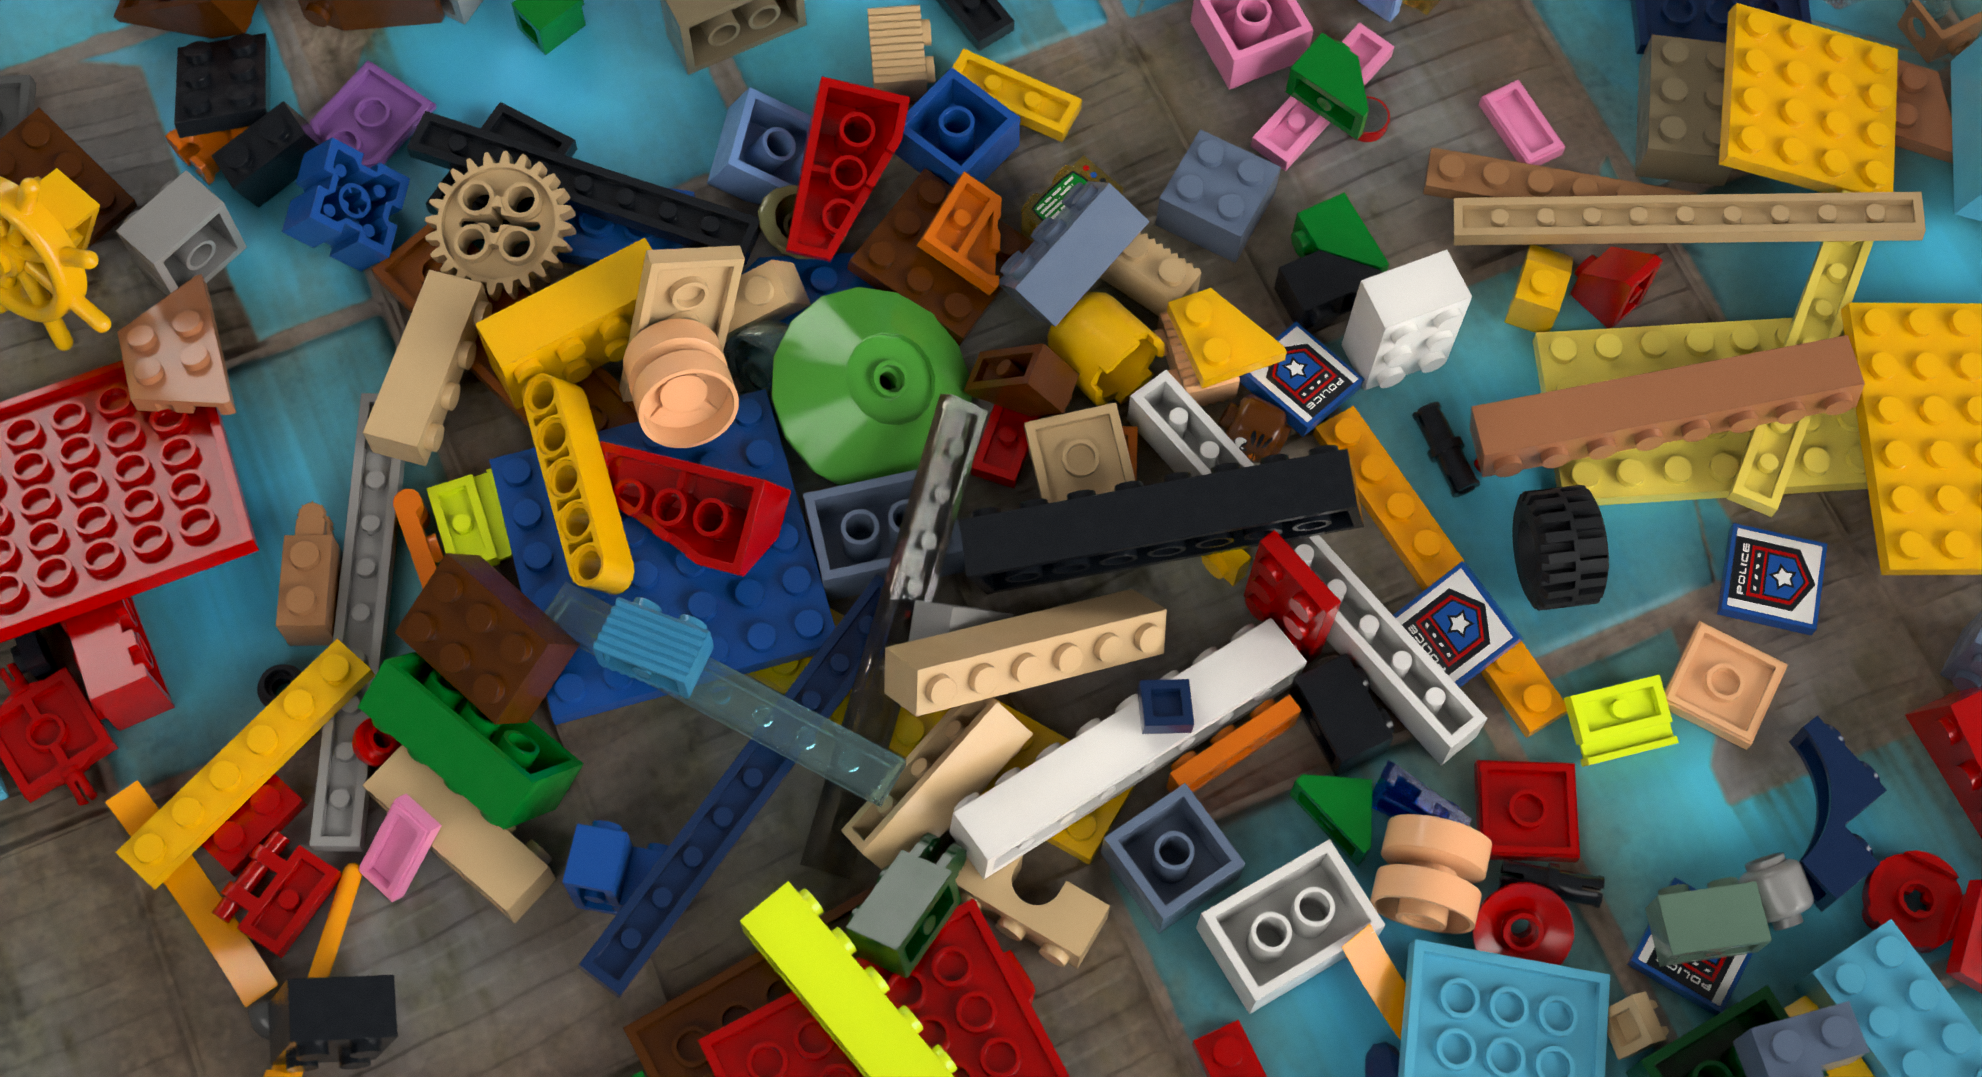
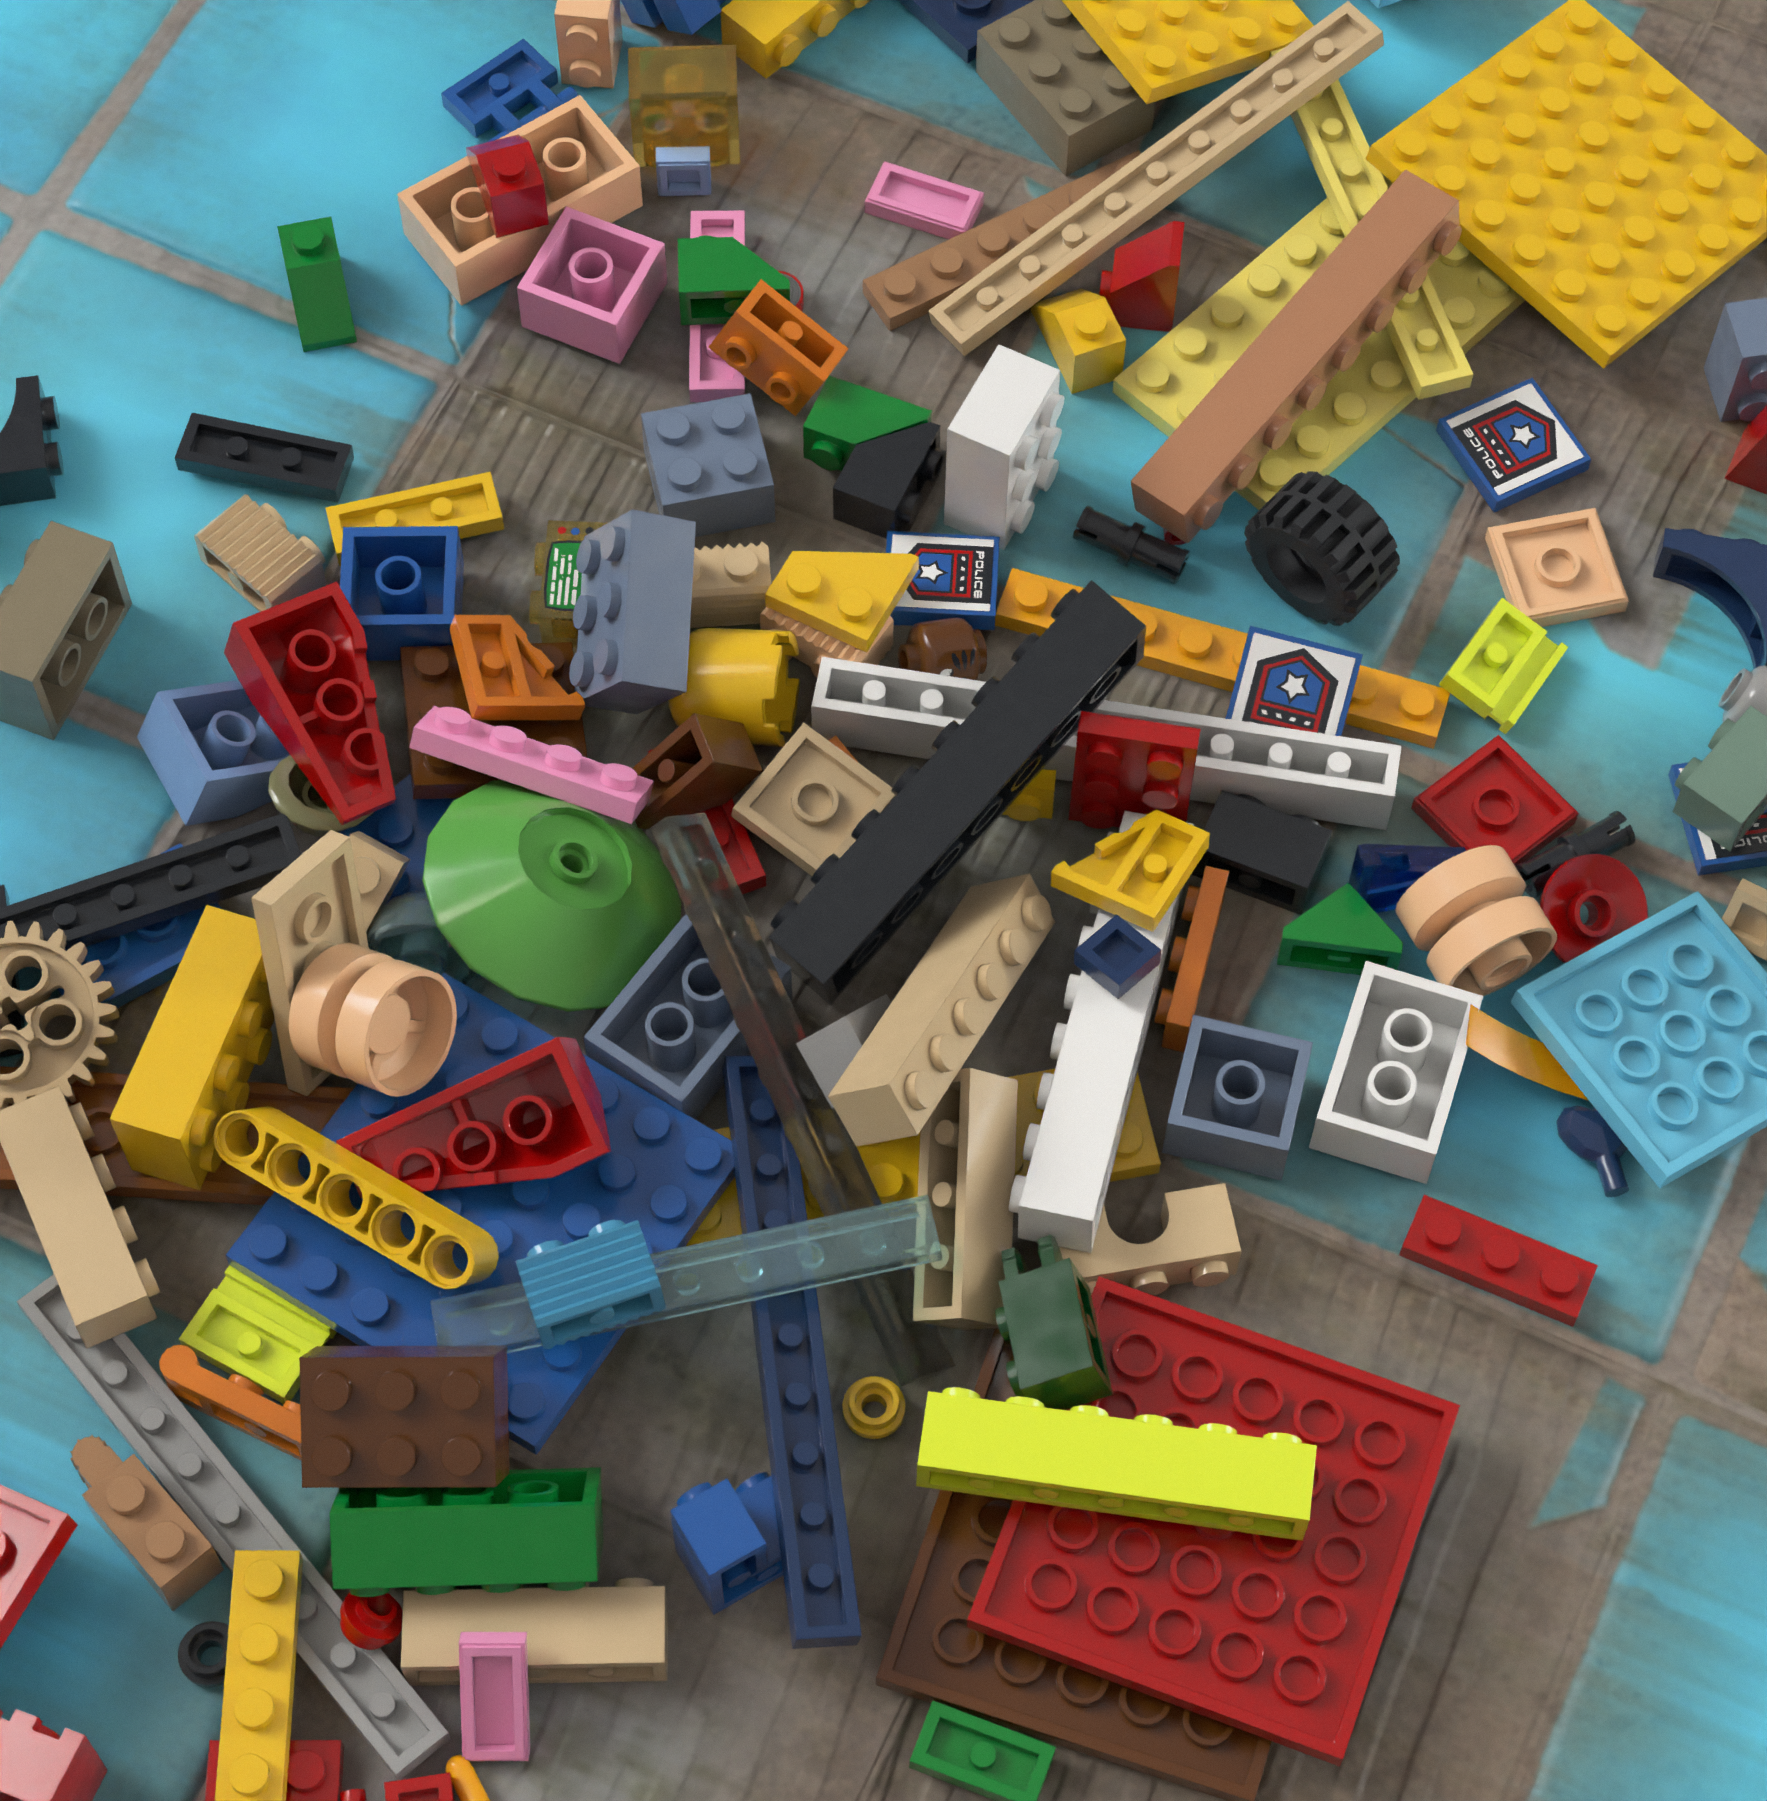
camera: 40 degrees left, 5 degrees down
(774, 849) = (869, 1390): none -> yellow plate
(925, 301) = (541, 767): none -> bright pink plate
(1235, 661) = (1137, 869): none -> yellow wing
(1325, 150) = (778, 347): none -> orange brick

